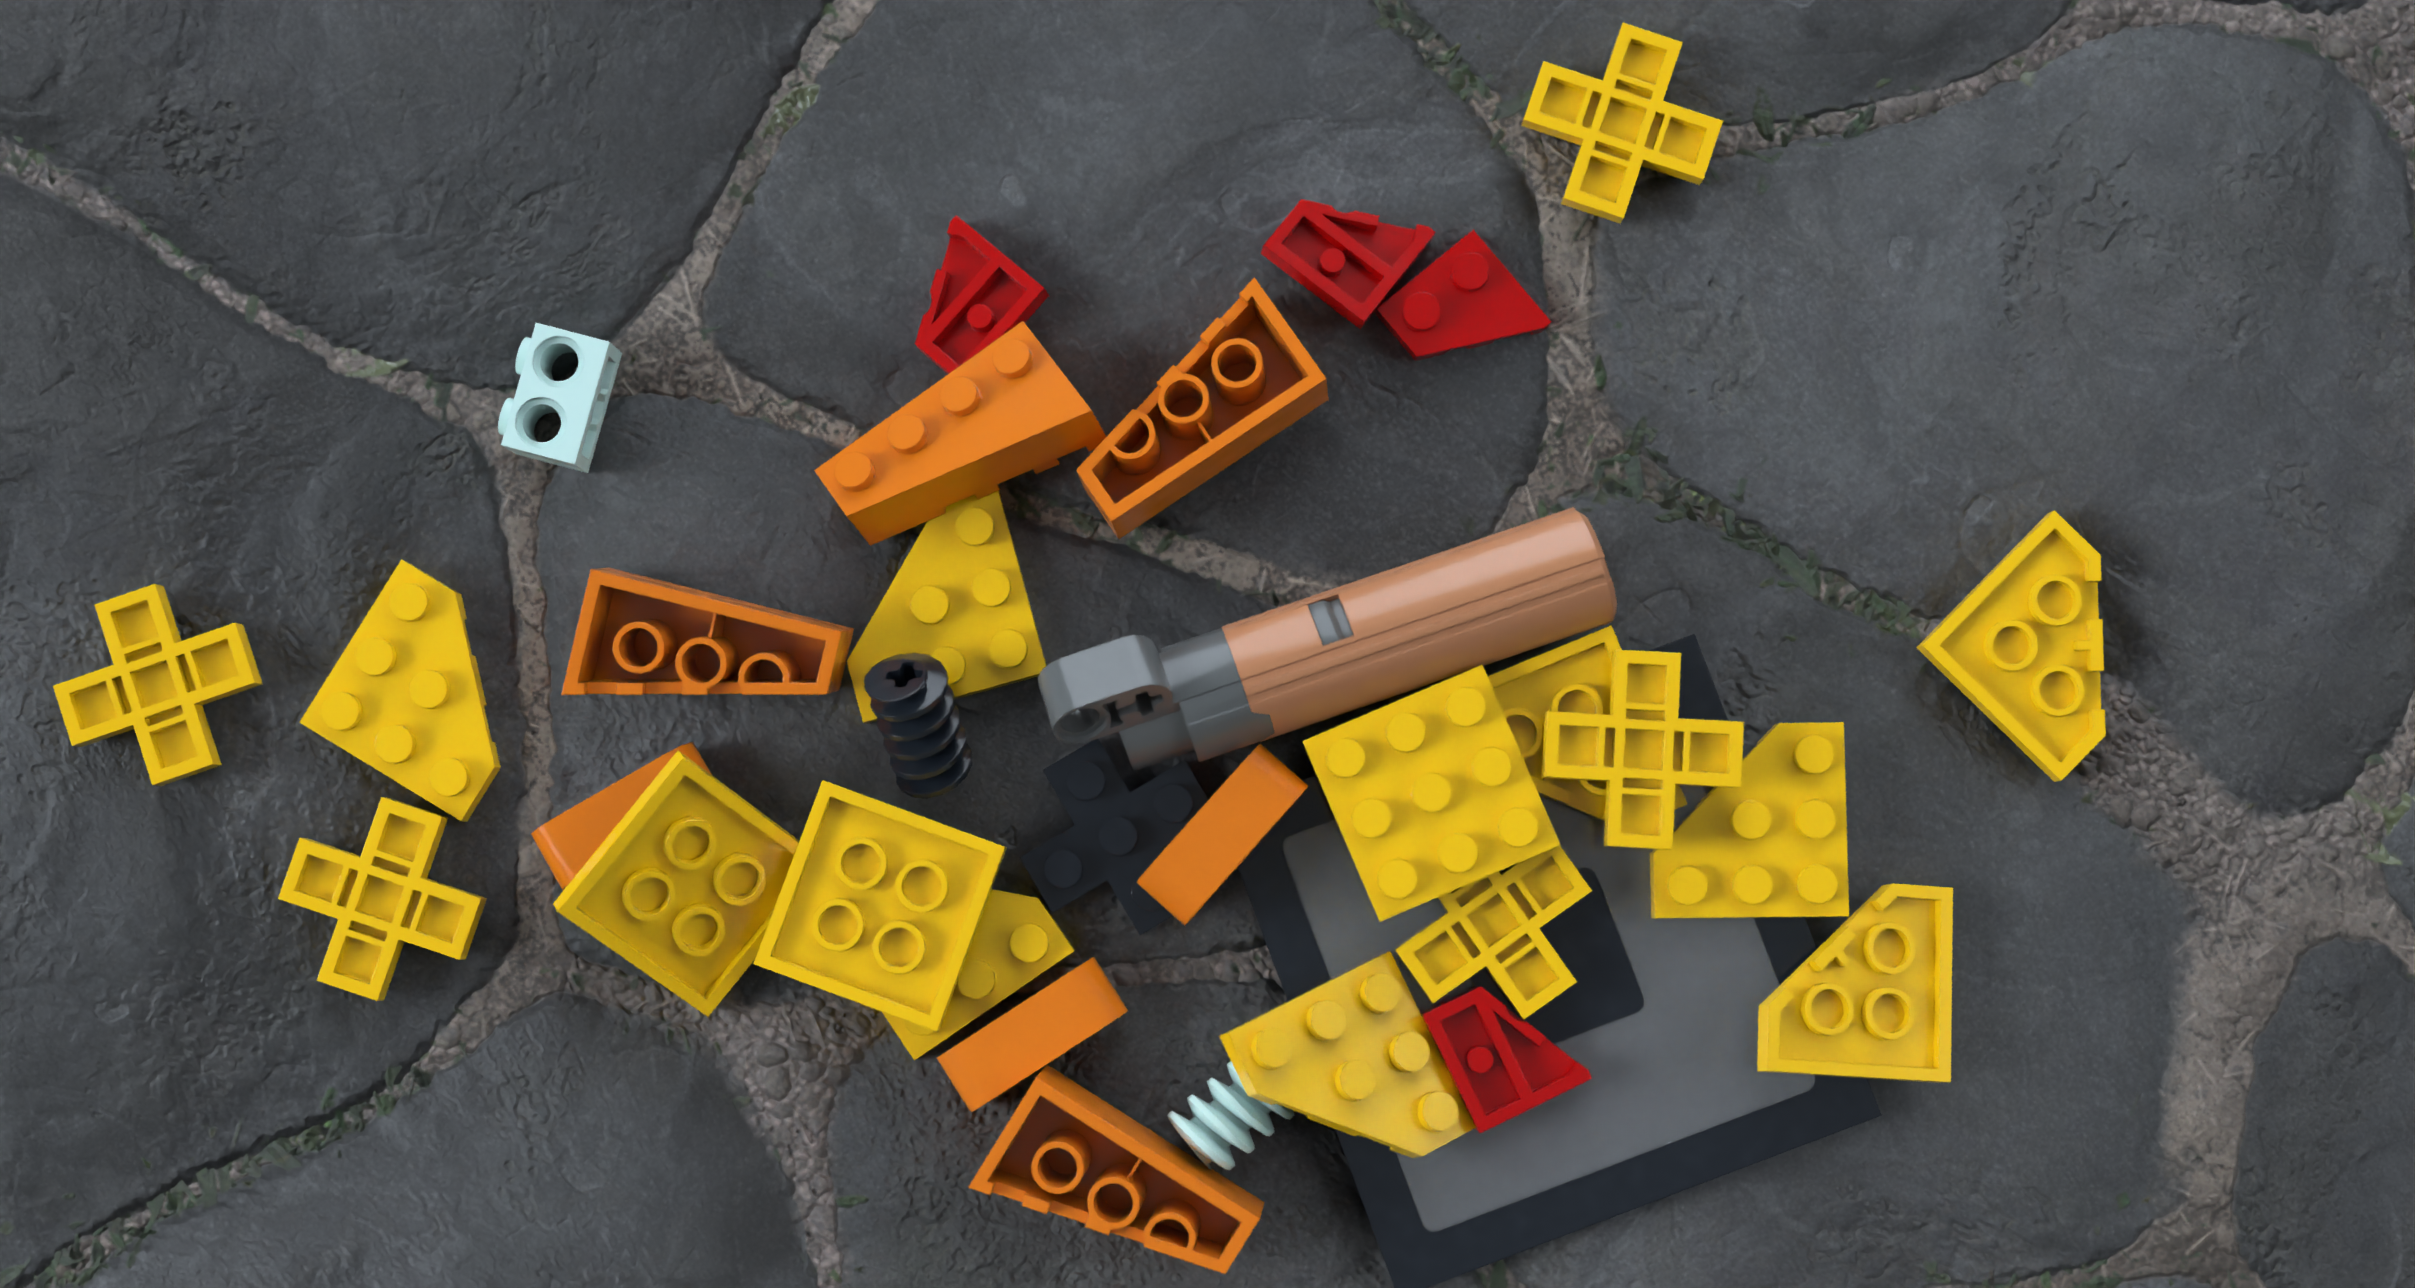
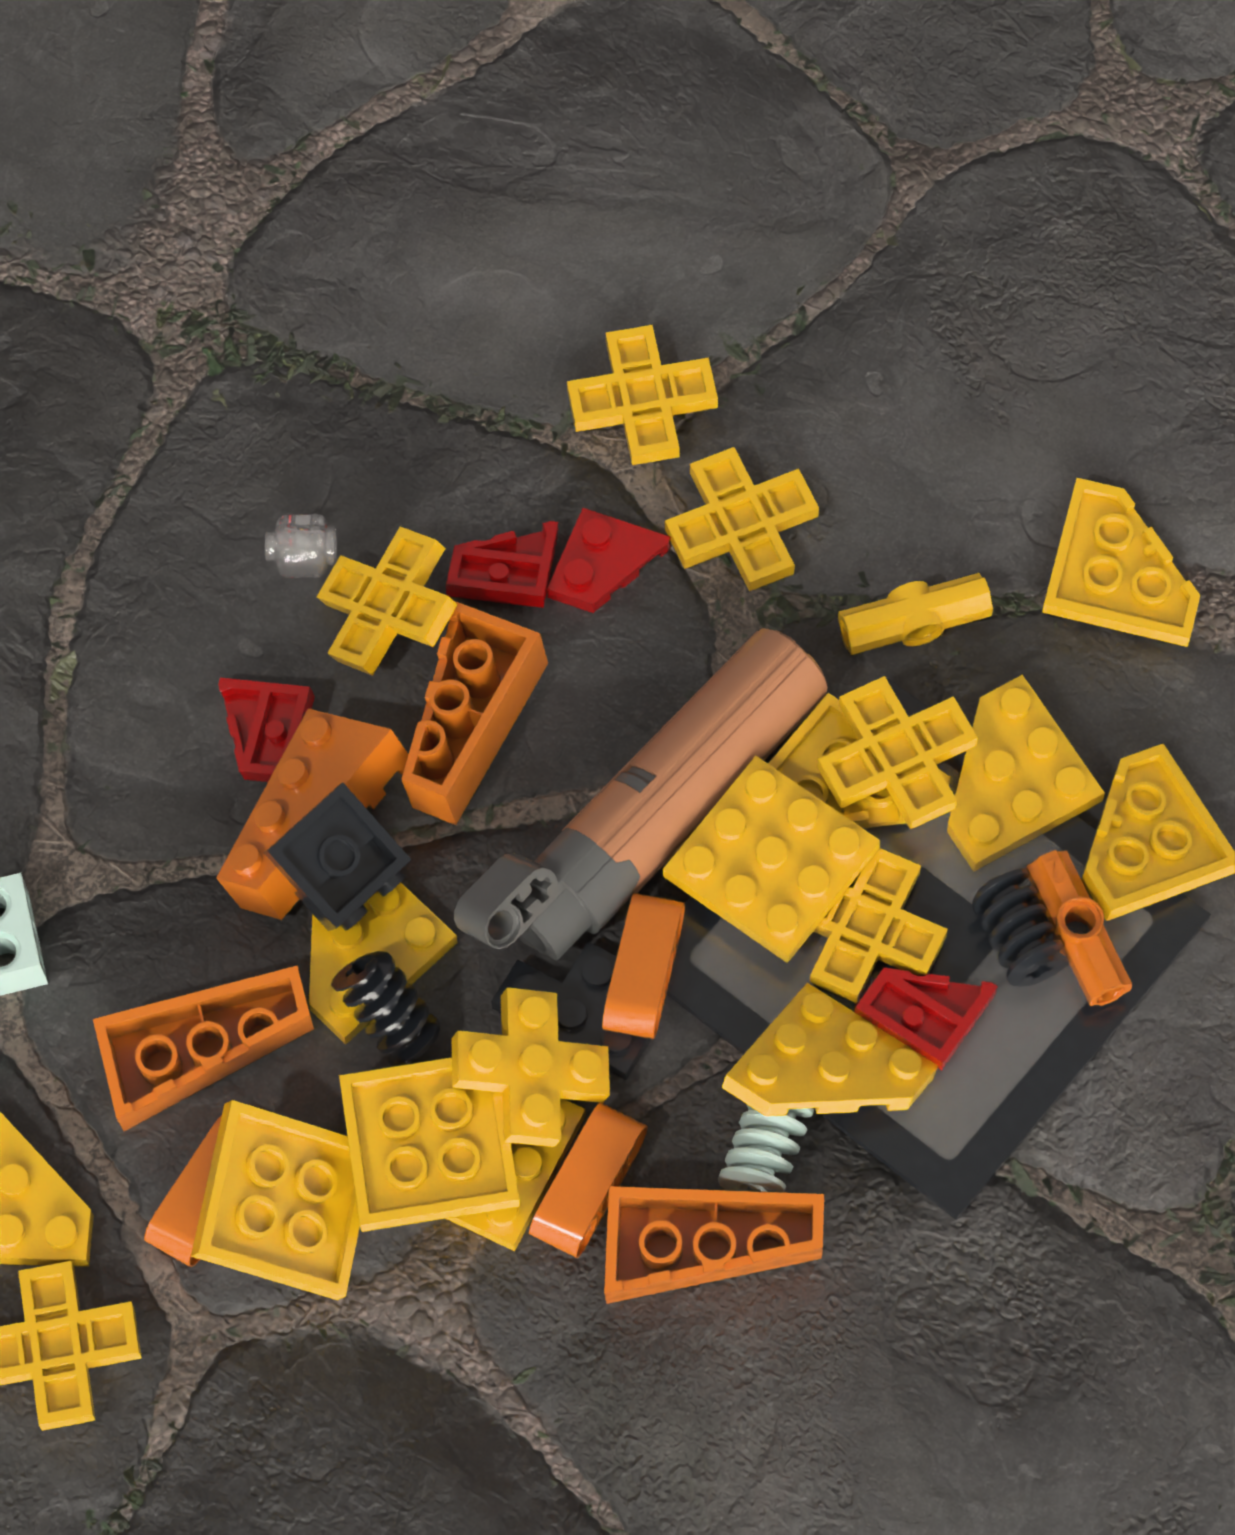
camera: 30 degrees left, 20 degrees down
(952, 530) = (338, 859): none -> black plate
(1031, 887) = (530, 1067): none -> yellow plate
(1130, 104) = (302, 545): none -> clear head
(1184, 231) = (386, 601): none -> yellow plate
(1645, 344) = (741, 518): none -> yellow plate
(1656, 1024) = (1015, 929): none -> black piece
(1719, 1104) = (1089, 954): none -> orange piece
(1771, 573) = (915, 613): none -> yellow piece

